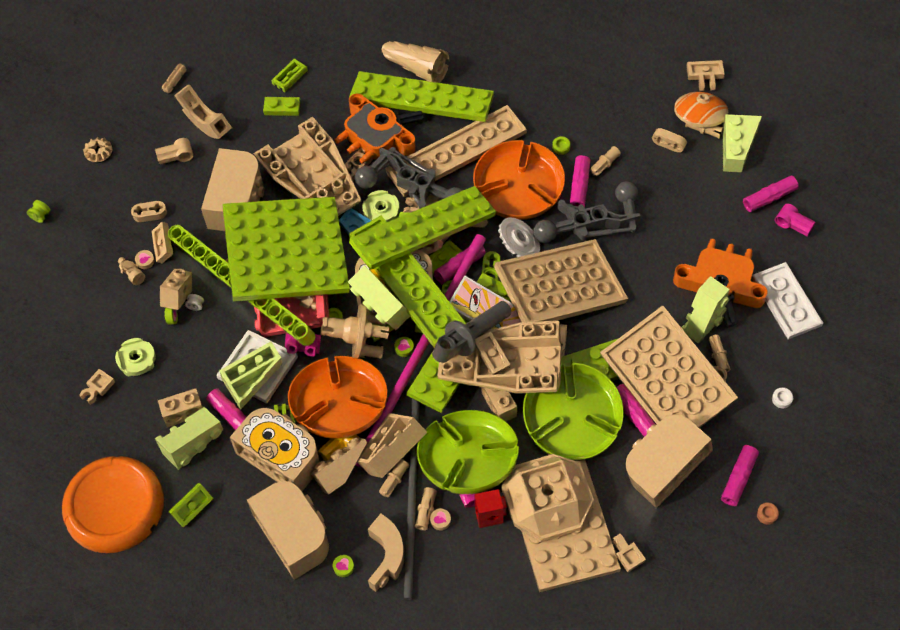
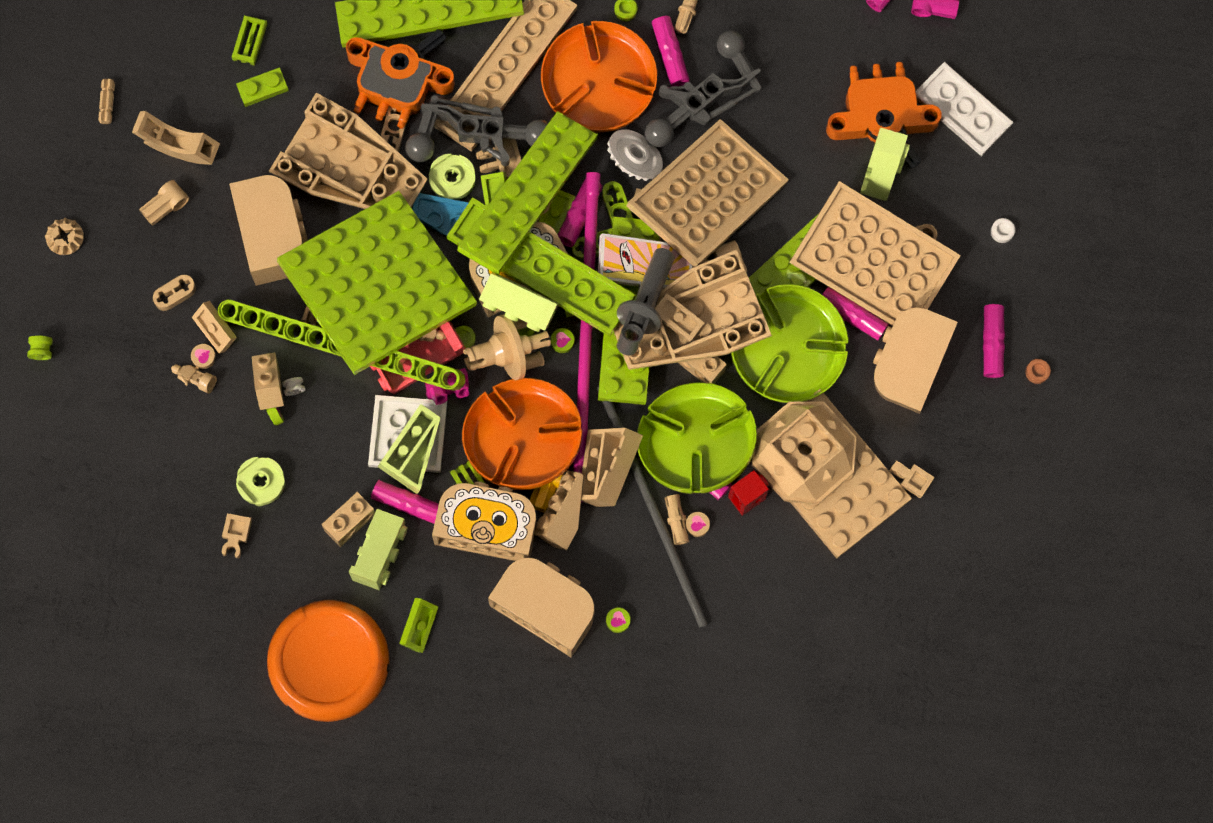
camera: 30 degrees left, 15 degrees up
(388, 536) = (661, 574): tan arch -> none
(393, 478) = (625, 501): tan axle -> none
(719, 353) = (915, 206): tan axle -> none

